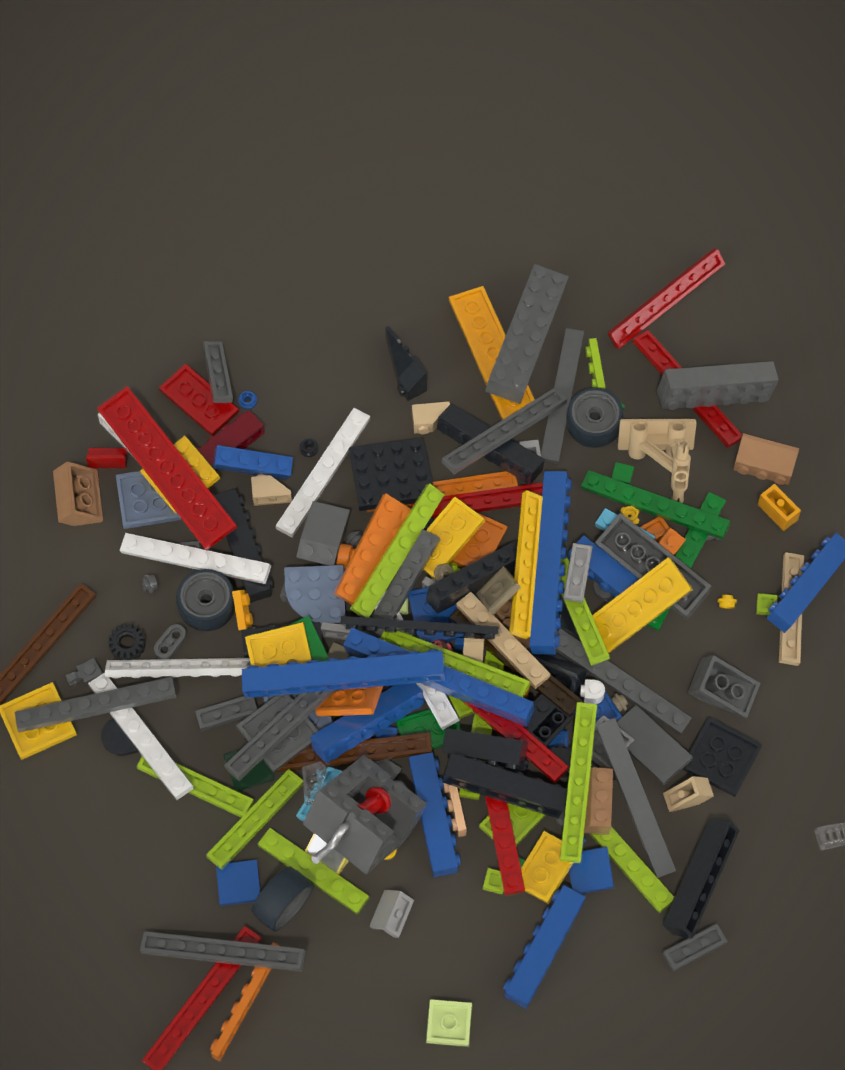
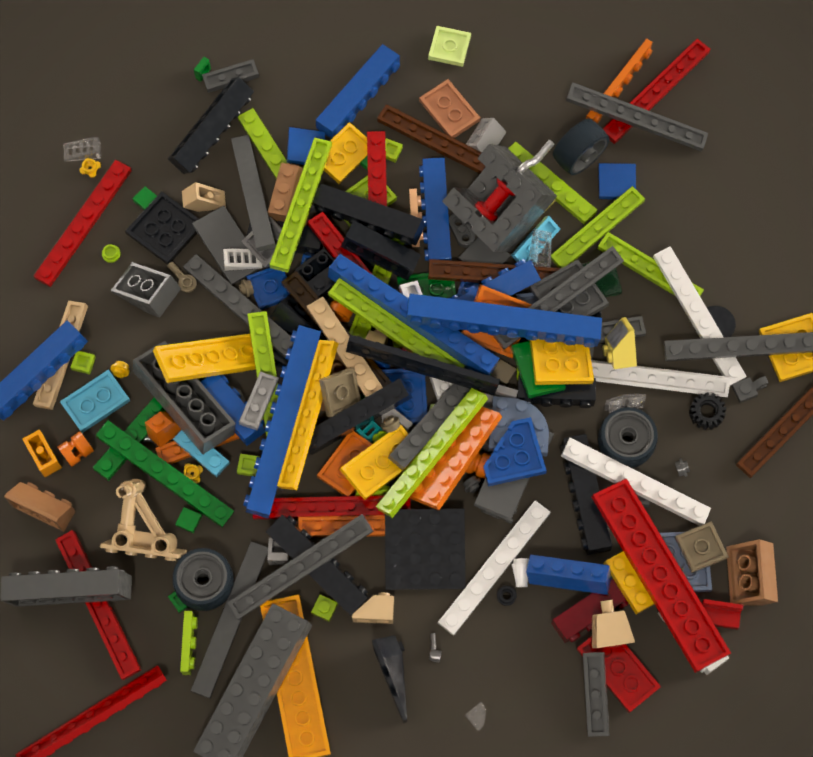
camera: 170 degrees left, 5 degrees up
(127, 508) = (701, 547): none -> dark tan tile
(170, 643) = (664, 406): dark grey plate -> none
(209, 419) = (610, 627): none -> tan torso
(218, 636) = (631, 400): none -> clear slope
(220, 683) = (620, 345): none -> light yellow slope
(241, 603) = (593, 421): light orange plate -> none
(247, 395) = (566, 655): blue plate -> none
(269, 491) = (553, 546): tan slope -> none
(298, 471) = (519, 570): none -> white cone
(315, 553) = (515, 455): none -> blue plate
(323, 347) = (477, 716): none -> clear tile
(369, 390) = (435, 655): none -> flat silver hand
(437, 941) = (449, 109): none -> nougat plate
(441, 898) = (431, 138): none -> reddish brown plate
(479, 412) = (324, 608): none -> lime plate
(577, 528) = (246, 465): none -> lime plate
(592, 691) = (269, 296): white plate -> none
(636, 718) = (239, 266): none -> white slope
(684, 702) = (186, 282): none -> dark tan plate
(729, 949) = (202, 68): none -> green tile
(743, 568) = (95, 401): none -> medium azure plate
(747, 519) = (81, 444): none -> orange wheel
(751, 789) = (144, 198): none -> green tile
(771, 722) = (111, 253): none -> lime plate
(810, 754) = (82, 223): none -> red plate
(827, 812) = (88, 162): none -> yellow plate

